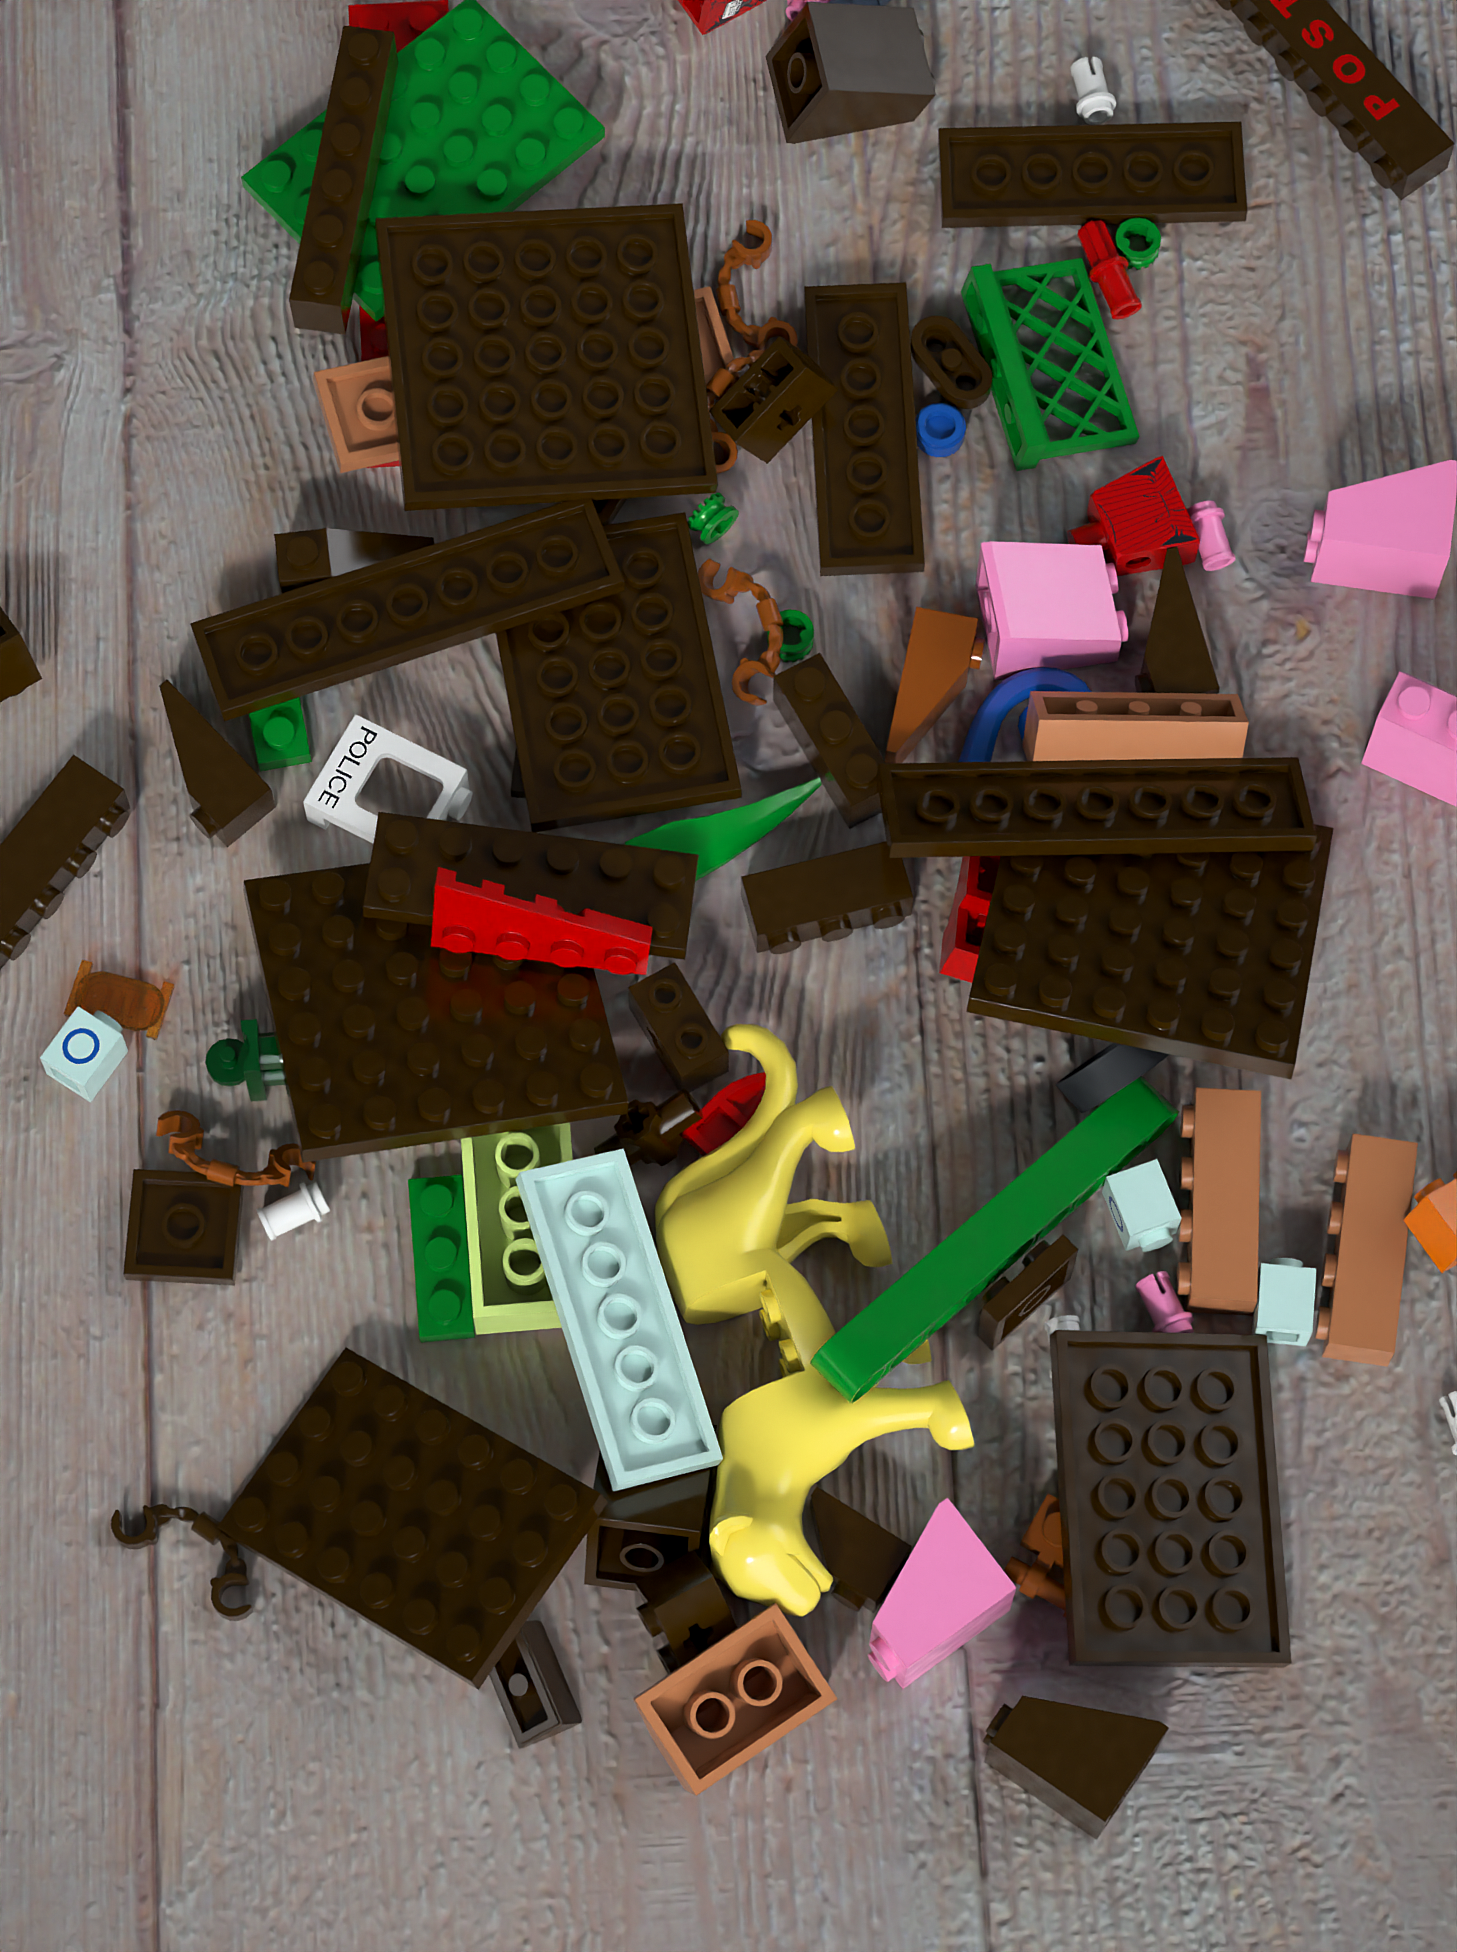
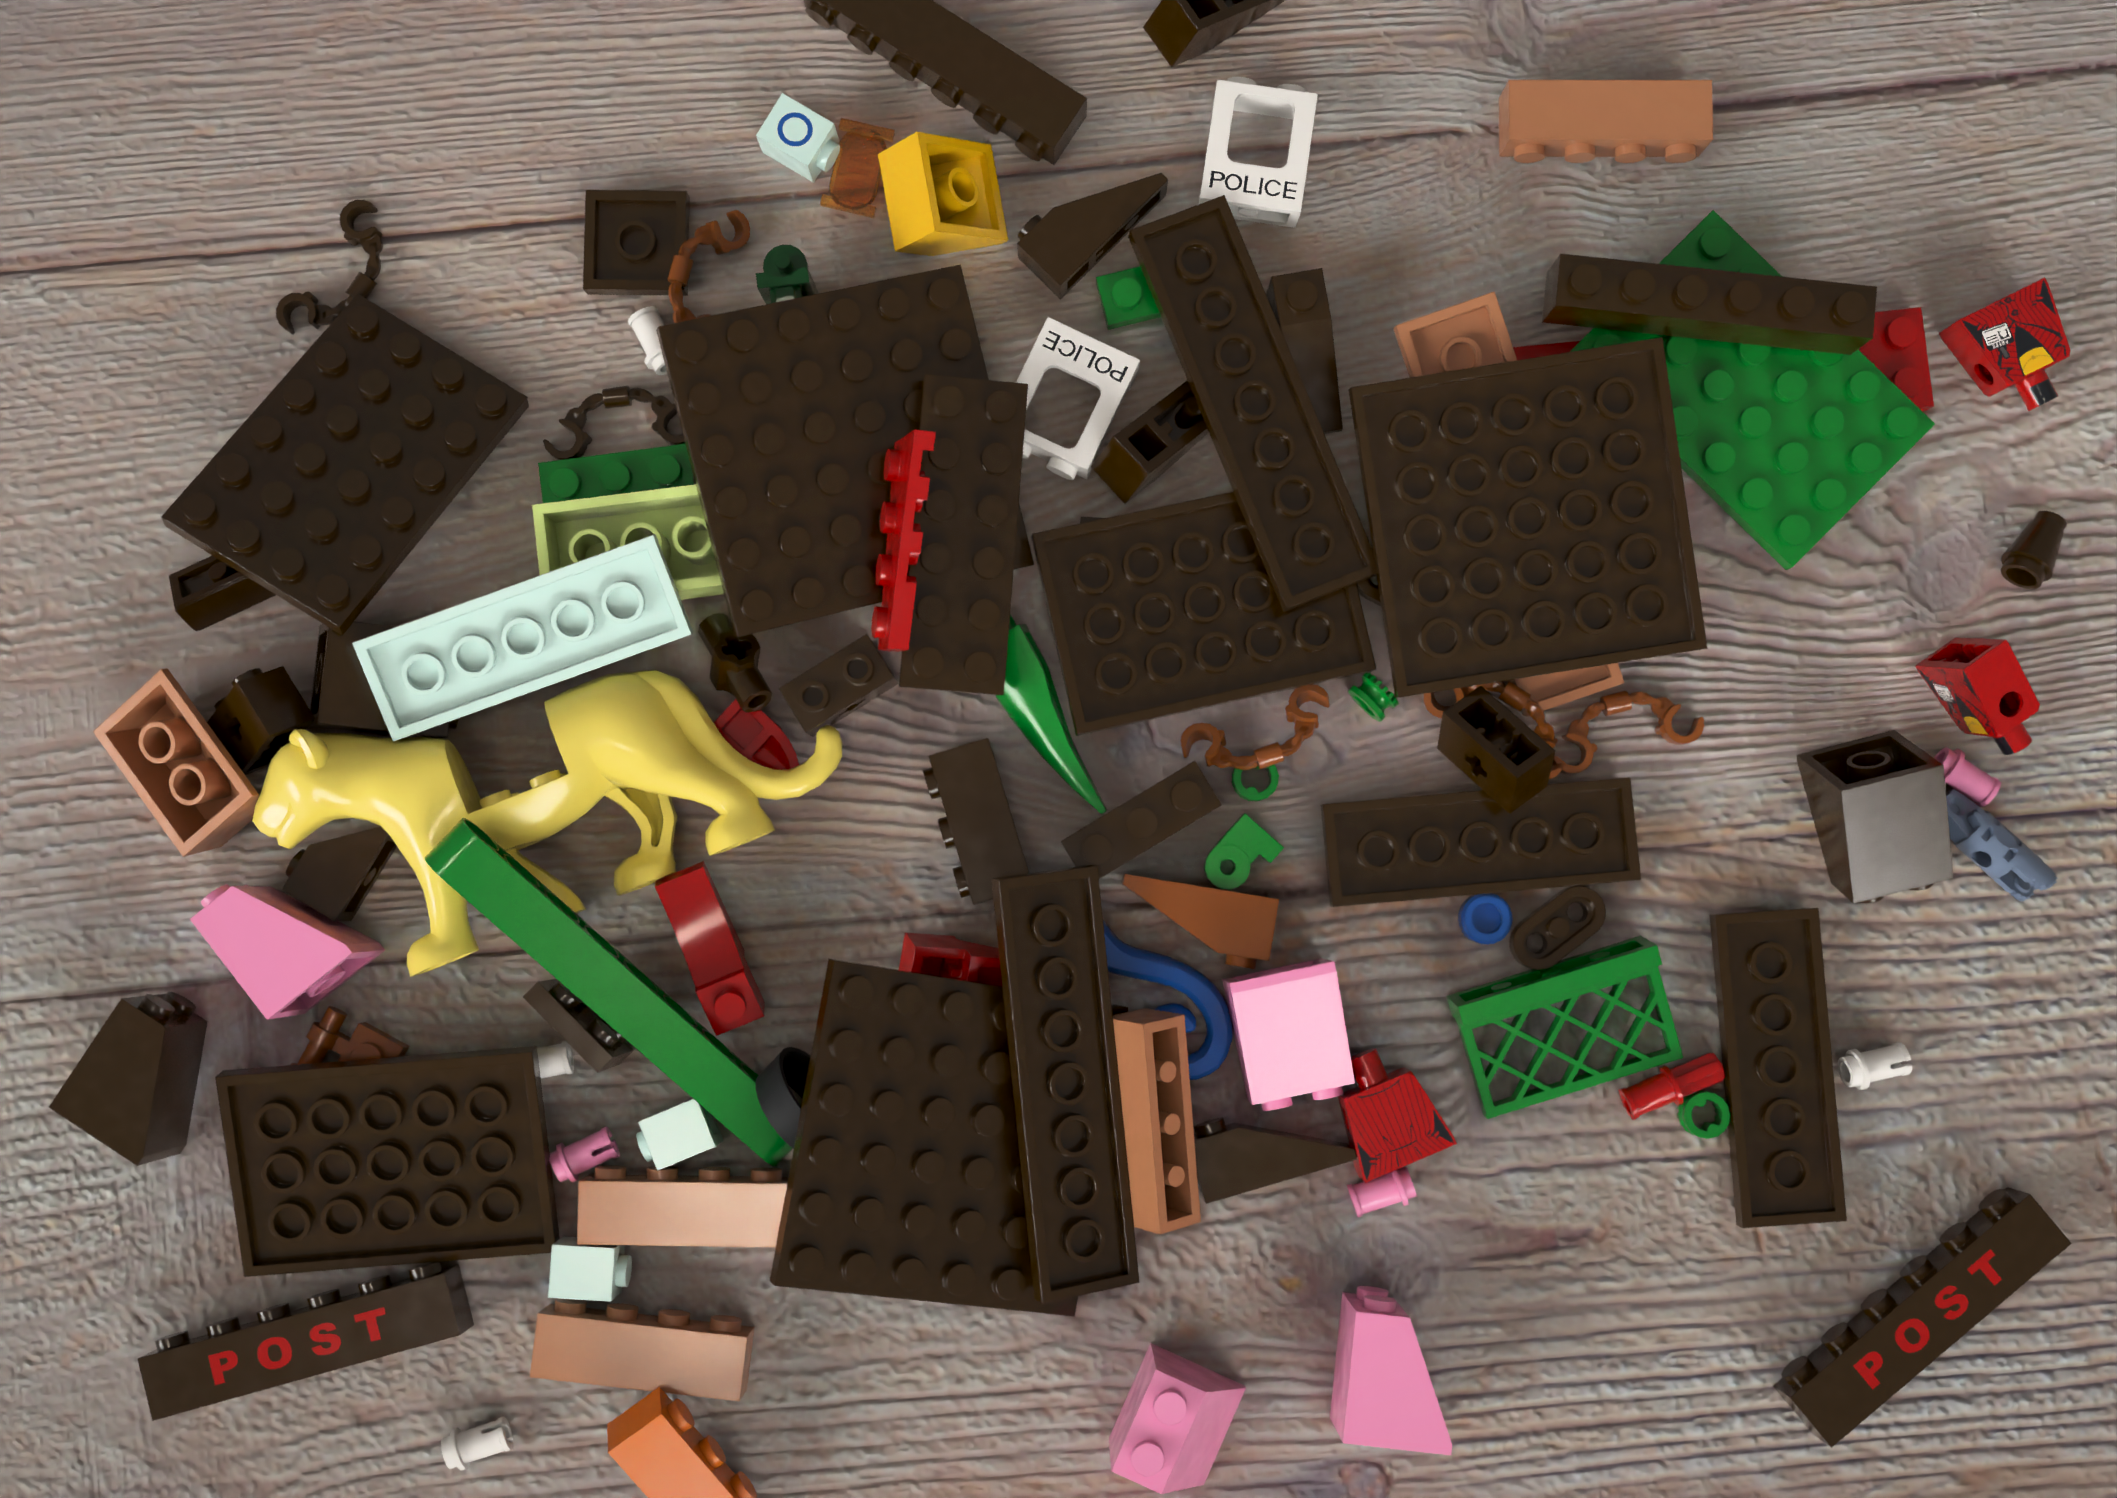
camera: 90 degrees right, 15 degrees up
(135, 275) = (1605, 119): none -> nougat brick
(160, 912) = (942, 195): none -> yellow slope
(182, 598) = (1253, 190): none -> white window
(352, 1259) = (614, 398): none -> dark brown piece
(439, 710) = (1151, 444): none -> dark brown slope
(865, 654) = (1230, 858): none -> green leg
(951, 1166) = (711, 948): none -> red slope
(1359, 1599) = (305, 1341): none -> dark brown brick

